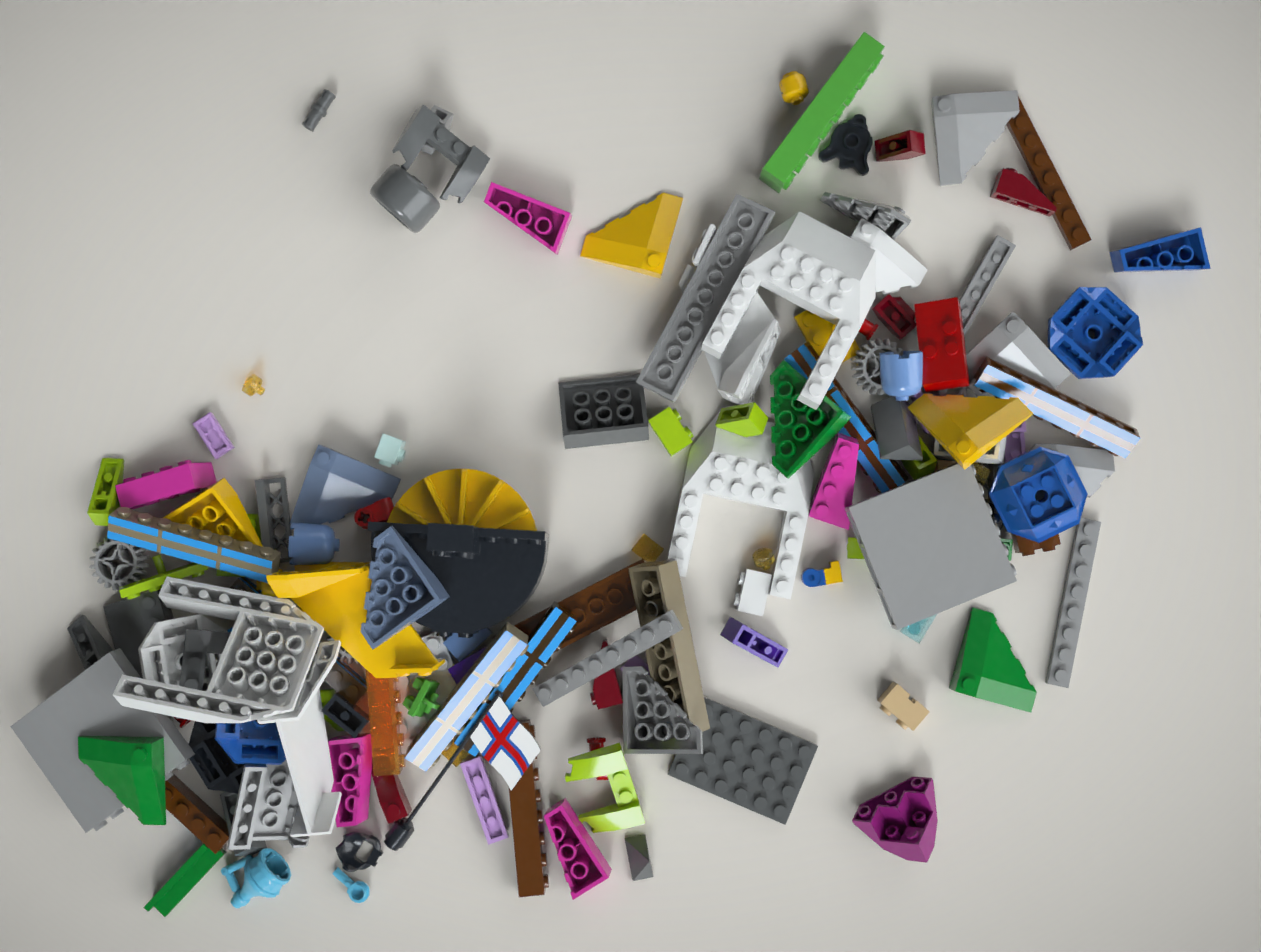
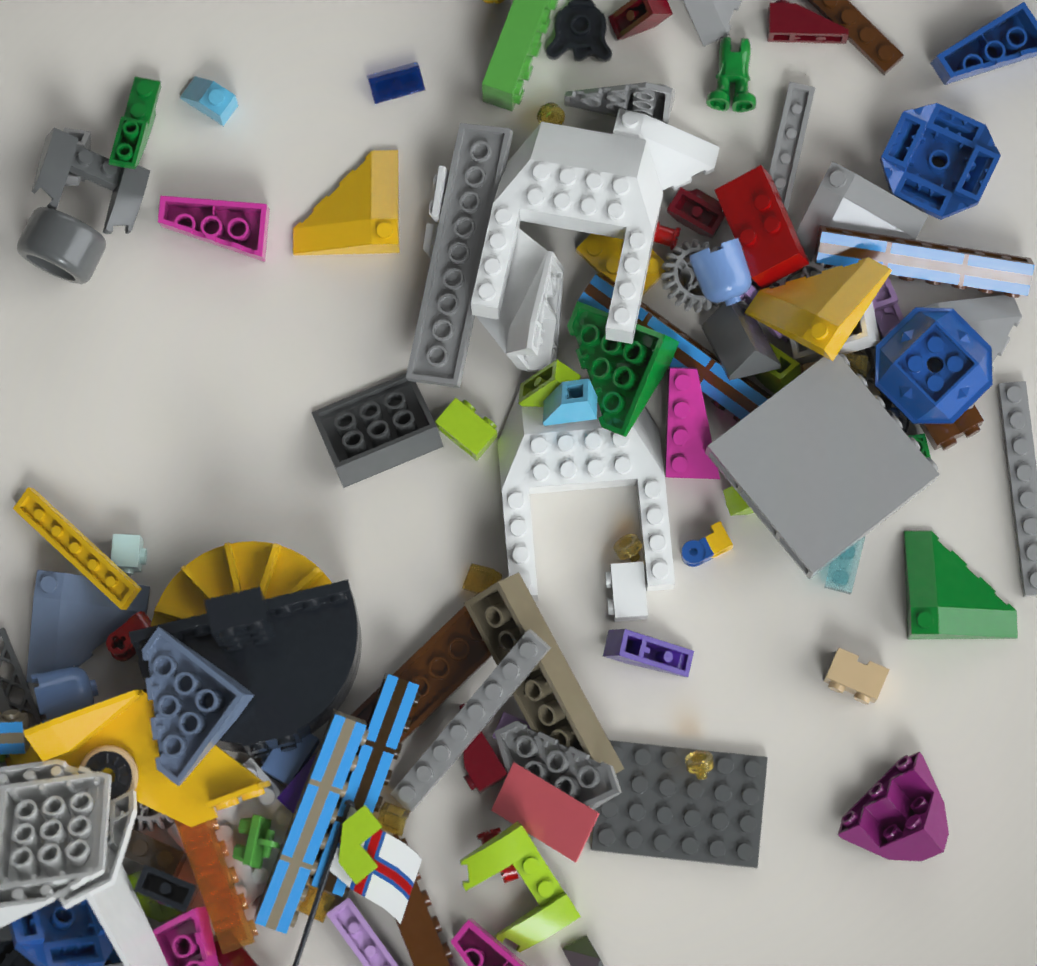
camera: 15 degrees left, 10 degrees down
(335, 614) = (119, 761): none -> black wheel
(353, 437) = (77, 548): none -> yellow plate
(489, 118) = (136, 124): none -> green slope
(490, 733) = (352, 855): none -> lime tile
(529, 707) = (393, 818): none -> clear yellow slope
(552, 115) = (210, 99): none -> medium azure slope
(642, 743) = (545, 812): none -> coral piece
(697, 144) = (396, 82): none -> clear blue slope
(754, 440) = (570, 403): none -> medium azure slope
(767, 738) = (699, 763): none -> clear yellow tile
(807, 206) = (551, 113): none -> clear yellow tile
(957, 212) = (734, 70): none -> green piece

